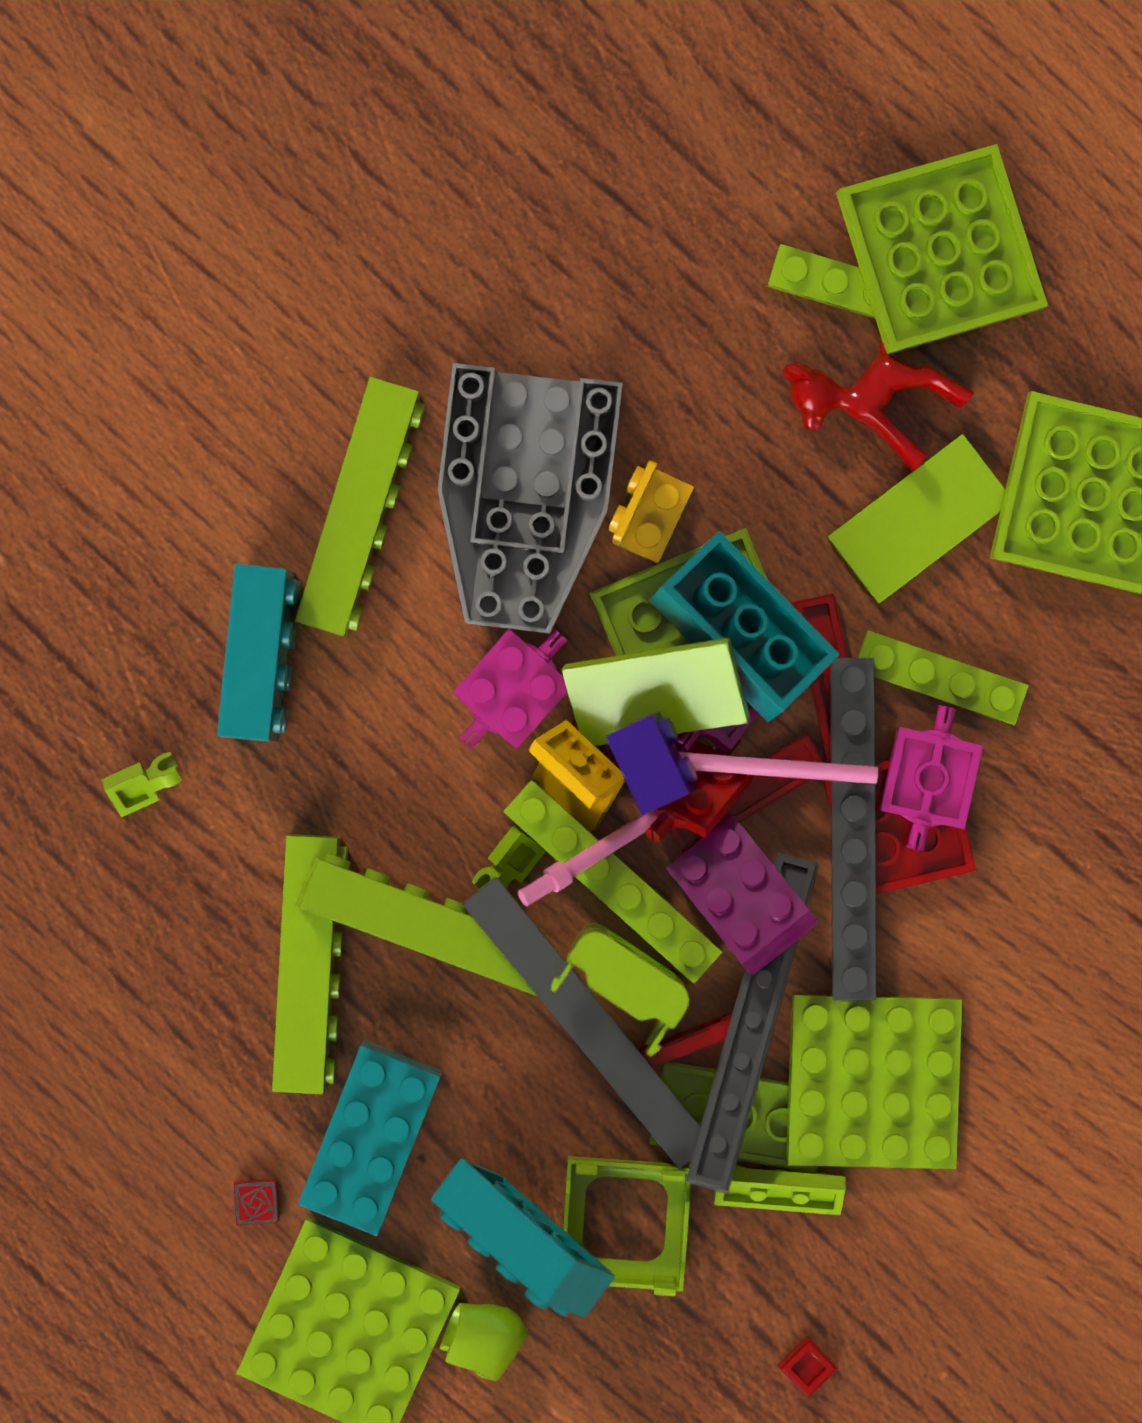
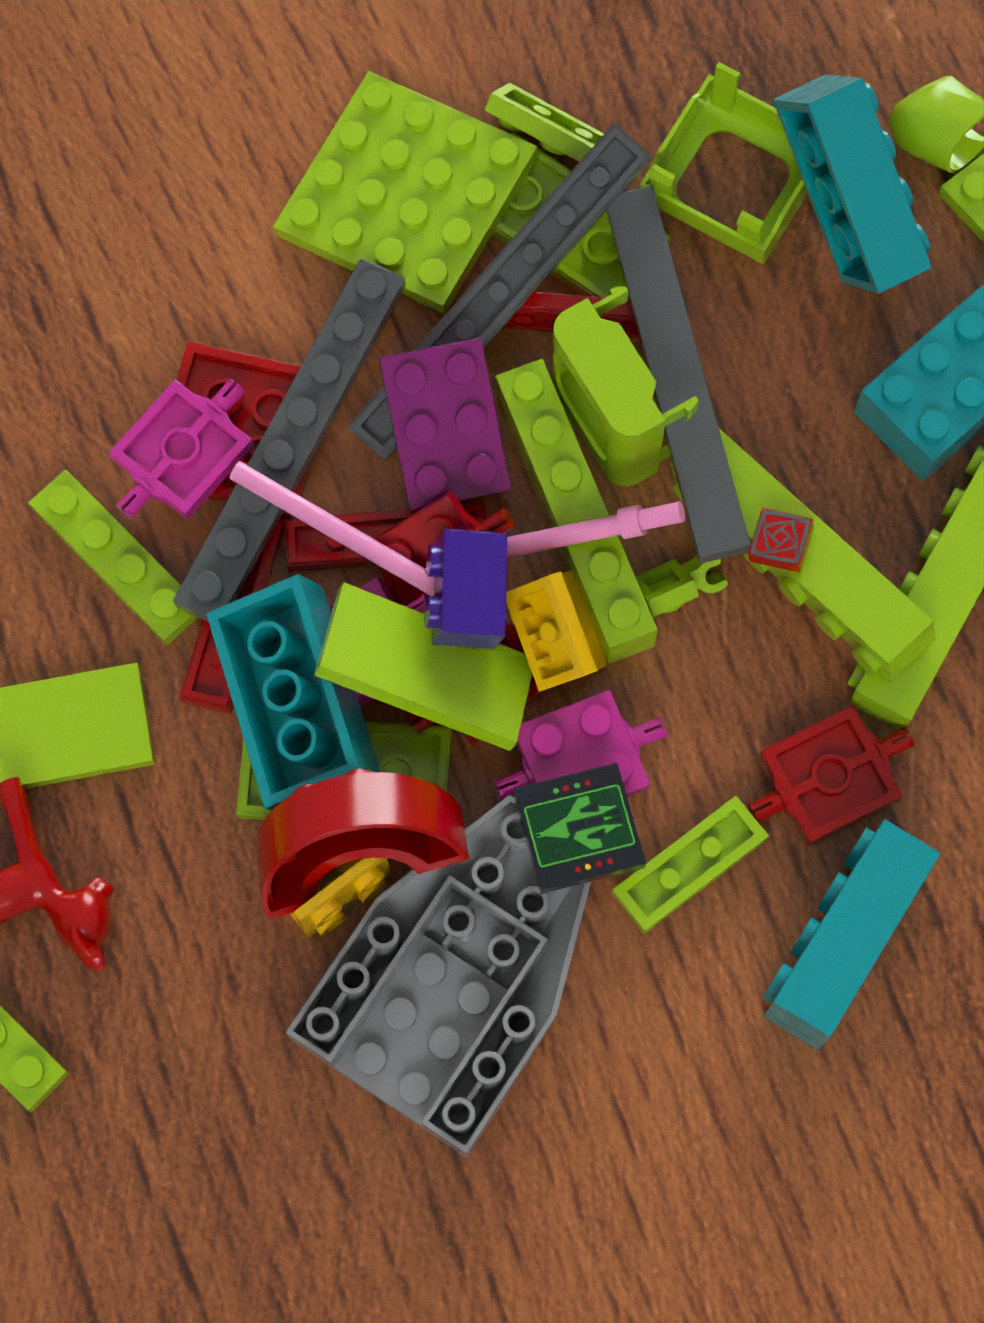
camera: 155 degrees left, 15 degrees down
(327, 771) = (831, 775): none -> red plate
(359, 507) = (654, 1048): lime brick -> none
(398, 654) = (690, 864): none -> lime plate
(442, 920) = (781, 540): none -> red tile
(485, 629) = (579, 828): none -> tile
(645, 549) = (350, 821): none -> red brick

